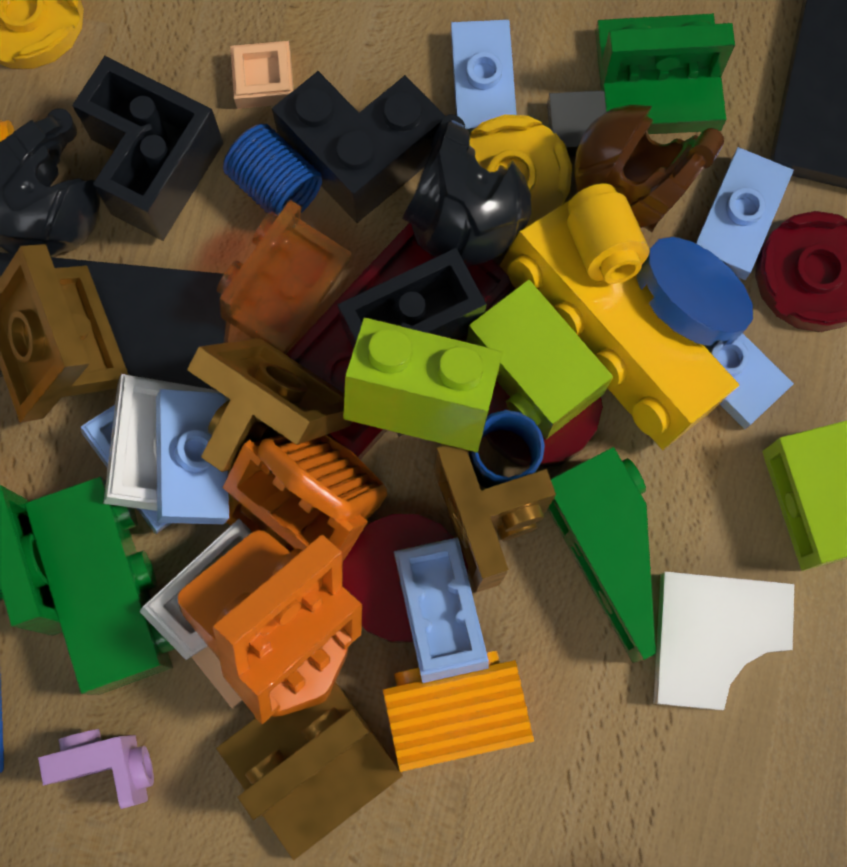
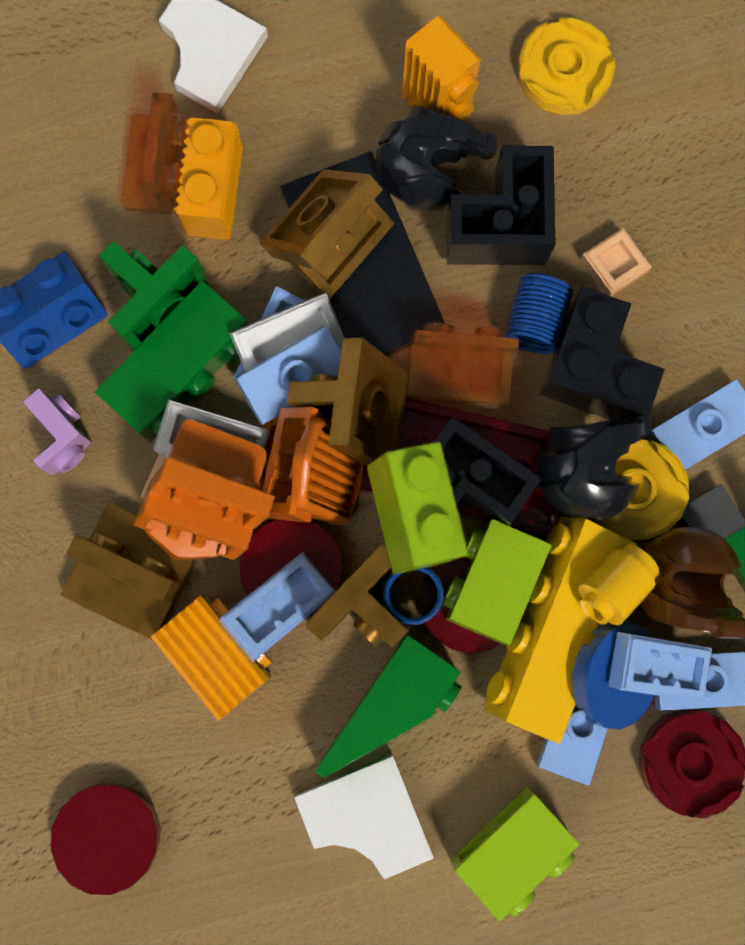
camera: 60 degrees right, 5 degrees up
(709, 242) = (659, 667): none -> light blue plate

